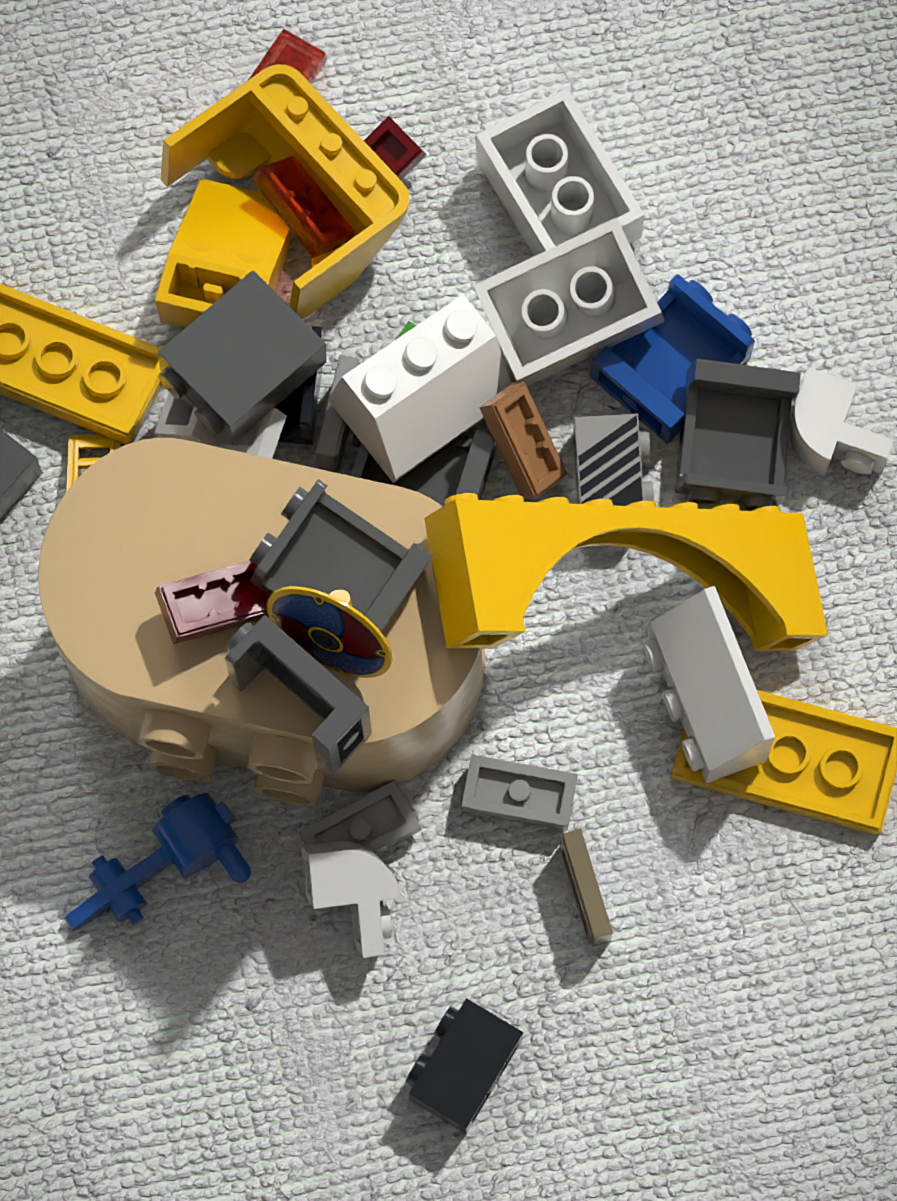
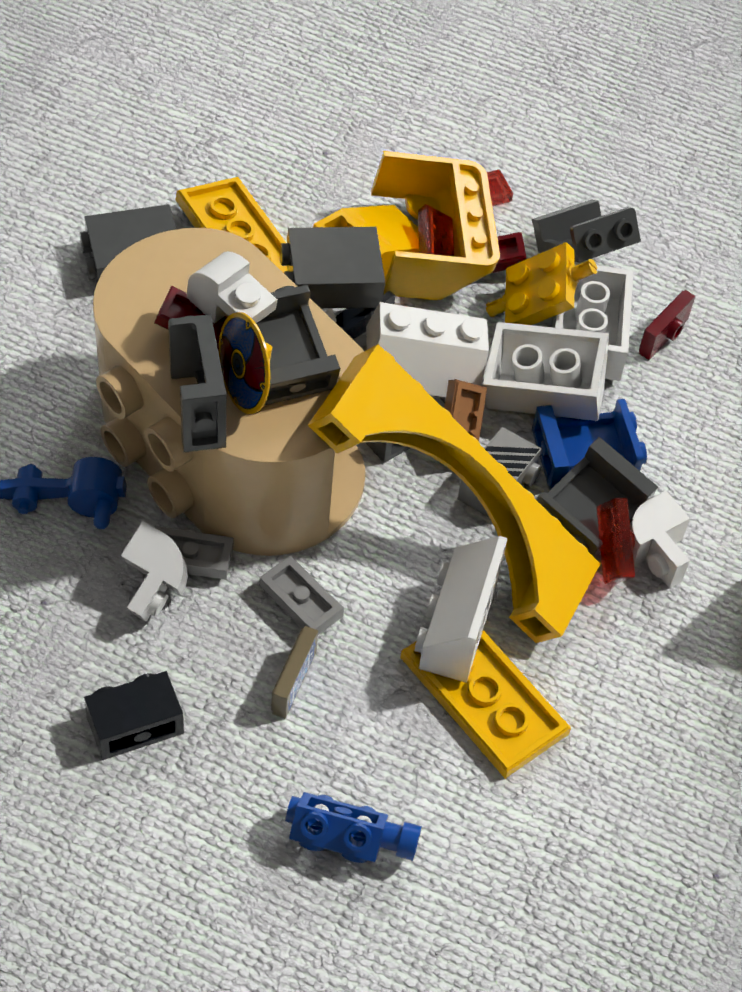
camera: 30 degrees right, 20 degrees down
(240, 553) = (228, 288): none -> white brick
(465, 66) = (587, 230): none -> dark grey panel
(480, 193) = (541, 286): none -> yellow plate
(644, 120) = (667, 324): none -> dark red plate
(778, 1029) = (344, 833): none -> blue brick
(800, 471) = (617, 541): none -> clear red plate

